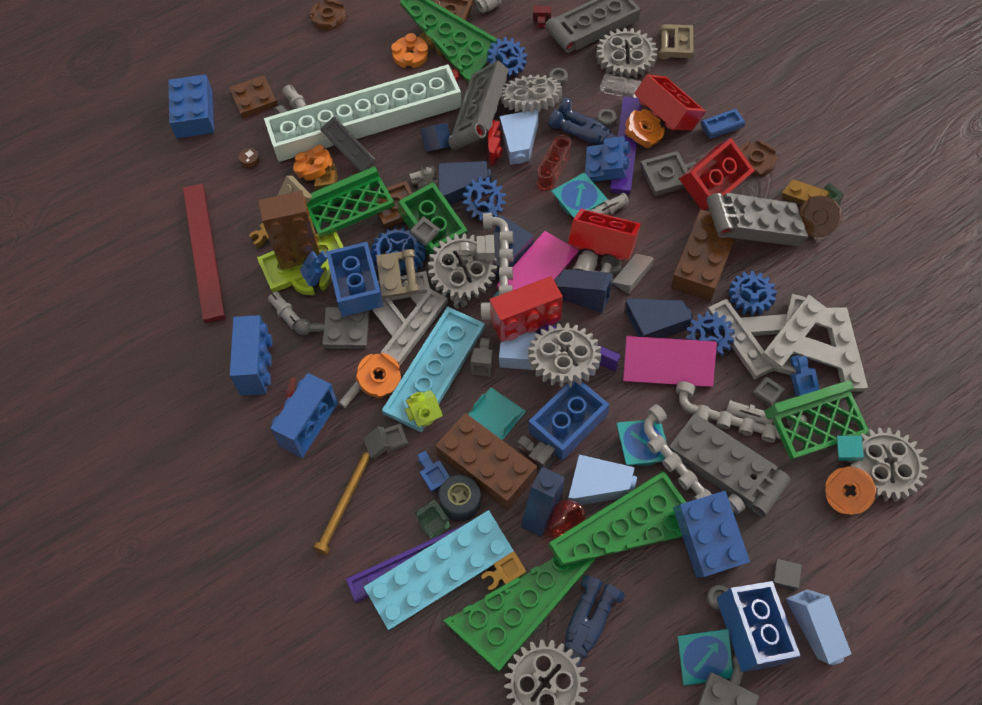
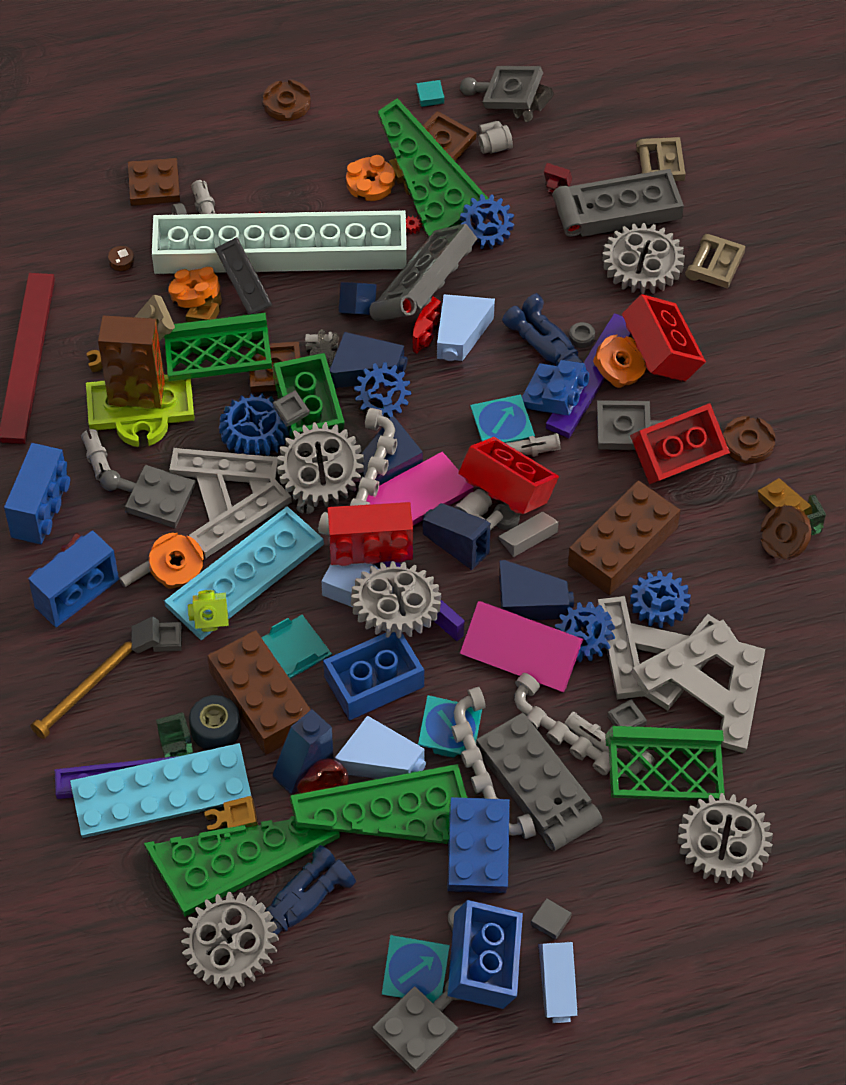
camera: 15 degrees right, 5 degrees down
(191, 106) = (73, 173): blue brick -> none
(311, 269) = (143, 414): blue plate -> none
(354, 279) = (187, 441): blue brick -> none
(390, 274) = (233, 449): dark tan plate -> none
(433, 474) = (195, 686): blue plate -> none
(482, 359) = (303, 578): dark grey piece -> none
(483, 248) = (350, 449): light grey piece -> none
(531, 93) = (496, 276): light grey gear -> none
(540, 455) = (327, 704): dark grey piece -> none
(553, 162) = (489, 371): clear red beam -> none
(559, 74) = (544, 264): dark grey tile -> none
(619, 85) = (613, 296): clear plate -> none
(722, 123) = (724, 383): blue plate -> none
(756, 219) = (700, 511): dark grey hinge -> none
(805, 378) = (673, 714): blue plate -> none
(850, 448) = (685, 804): teal tile -> none
(850, 504) = (678, 857): orange plate -> none

